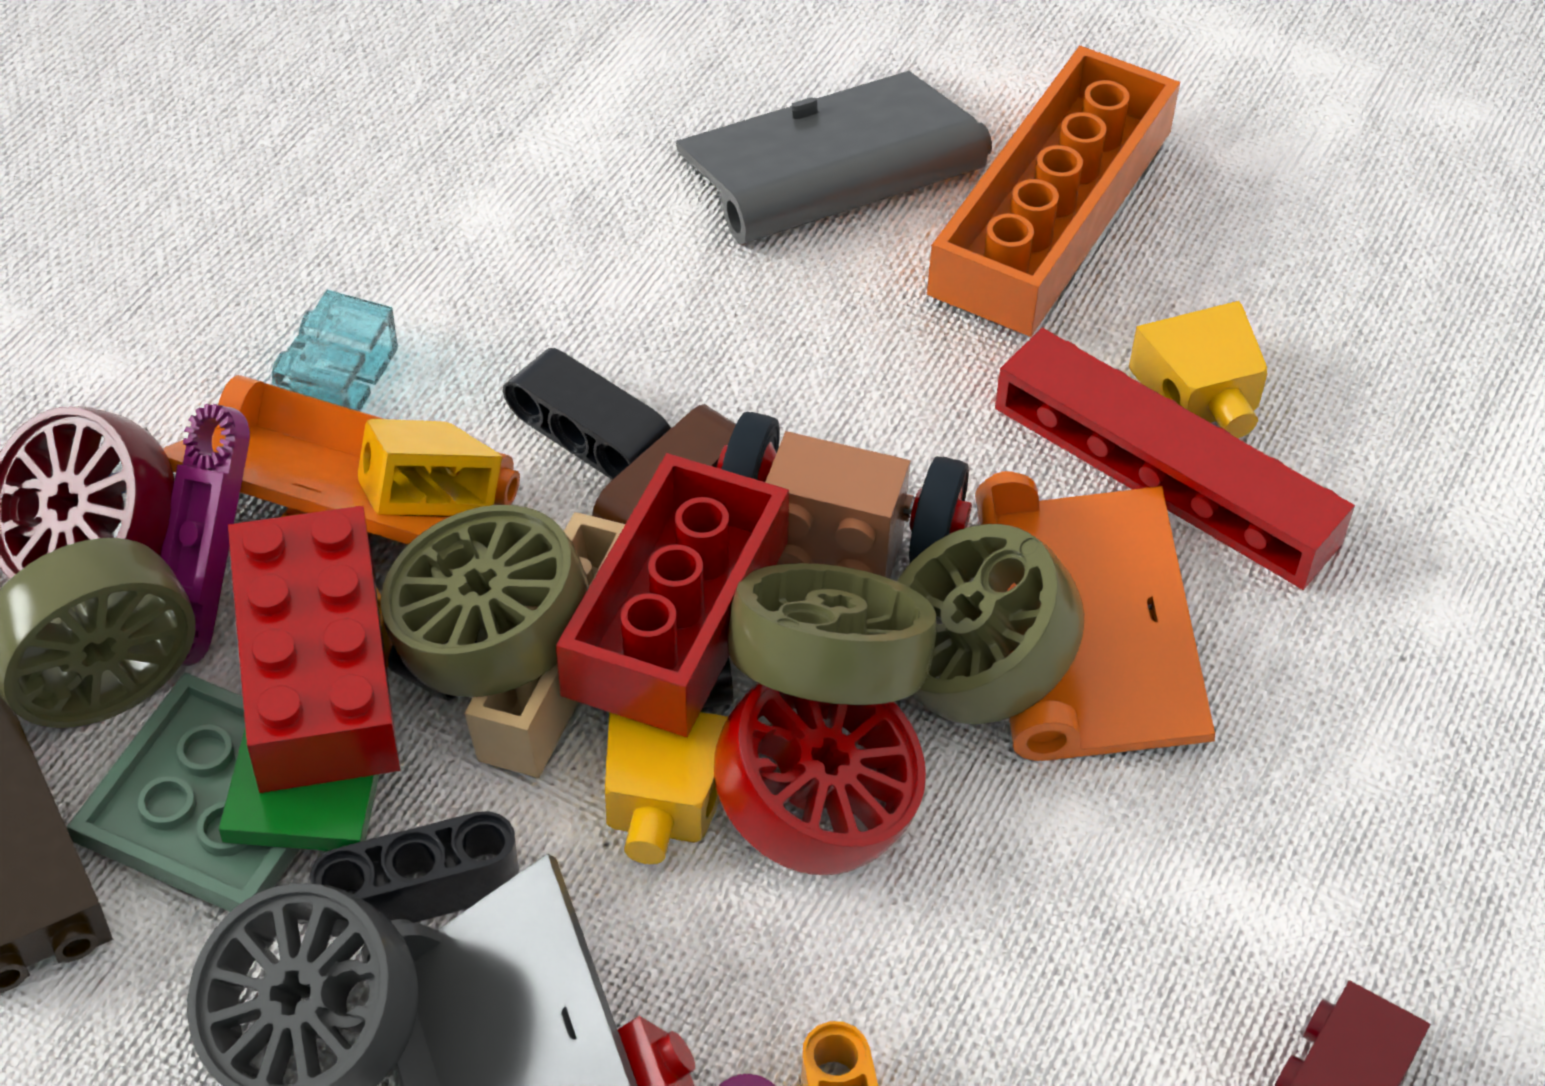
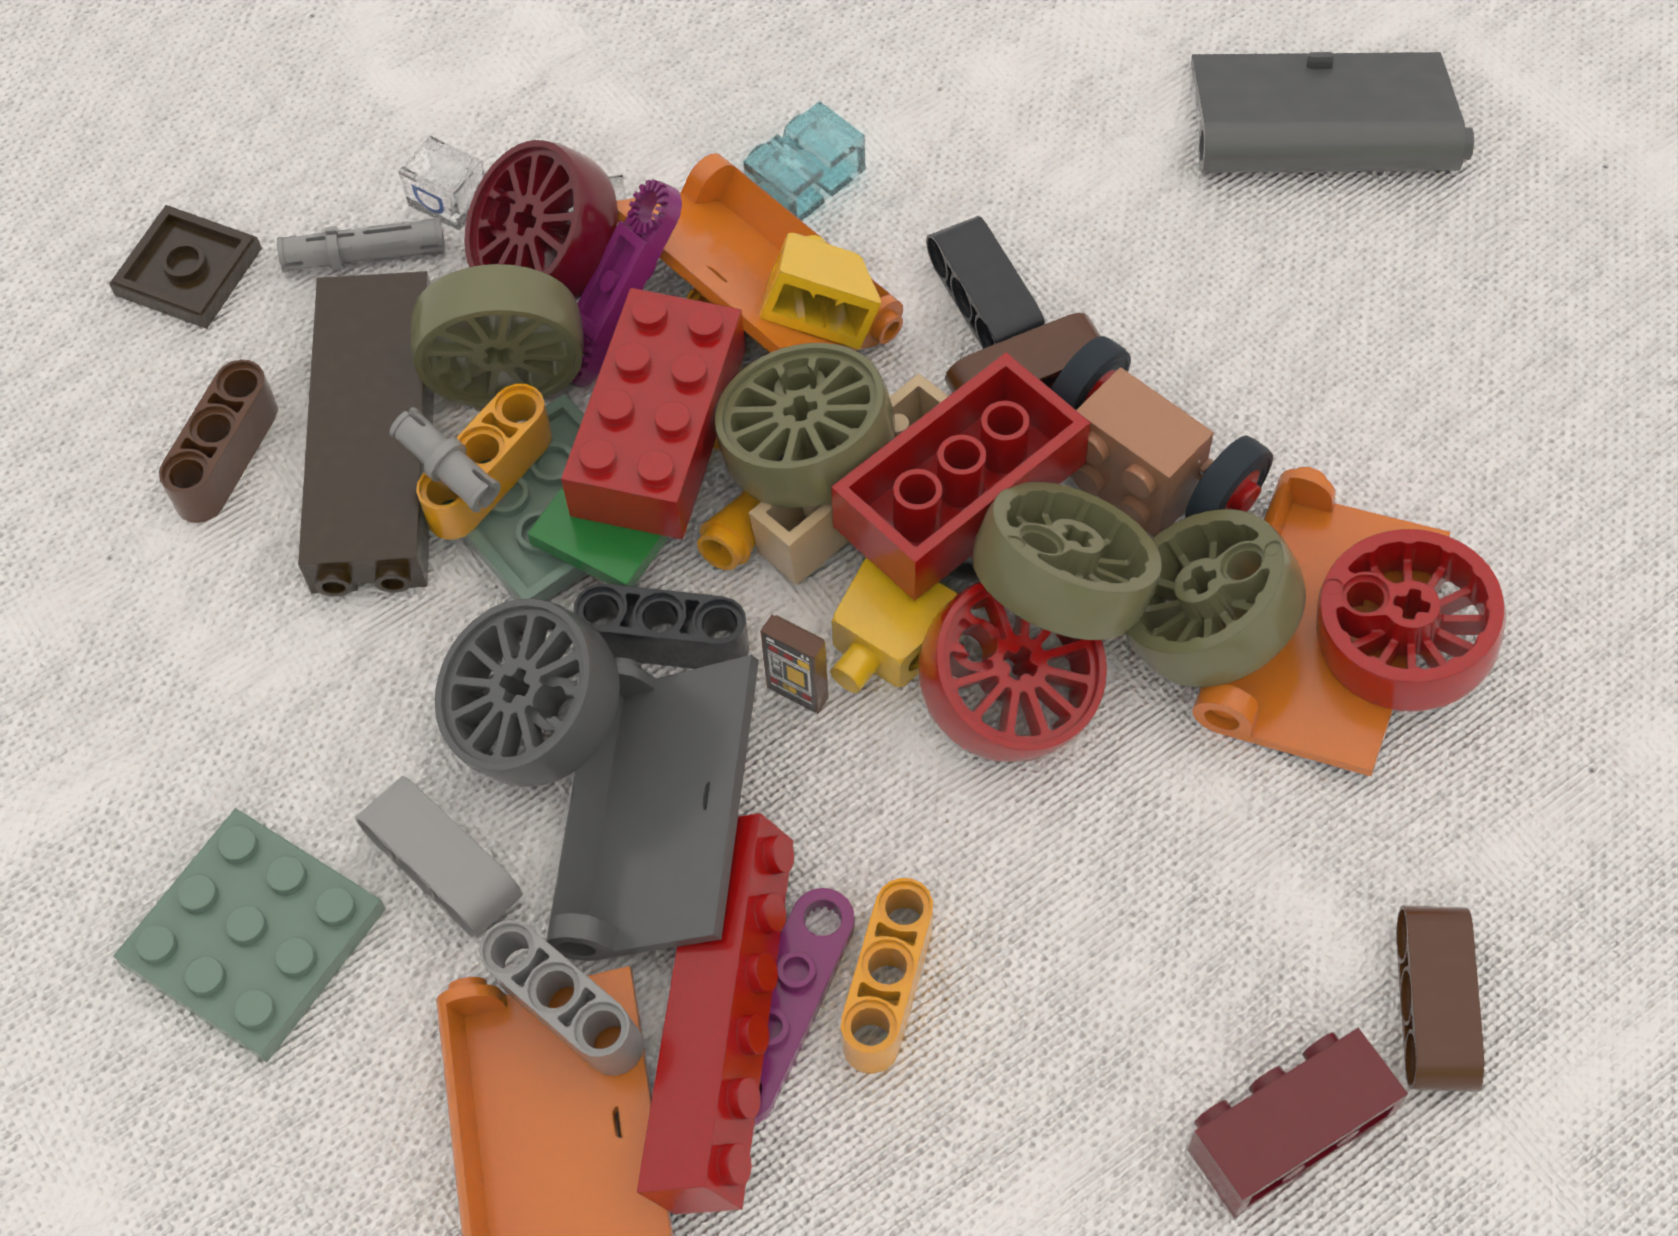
camera: 30 degrees right, 10 degrees up
(96, 776) = (445, 459): none -> light grey pin
(143, 731) = (497, 437): none -> light orange beam
(443, 749) = (728, 535): none -> light orange cone
(591, 849) = (795, 663): none -> tile
(1052, 190) = (1506, 214): orange brick -> none
(1155, 442) = (1471, 495): red brick -> none
(1177, 576) = (1359, 577): none -> red piece
(1204, 364) = (1553, 435): yellow torso -> none
(1398, 924) = (1439, 999): none -> reddish brown beam

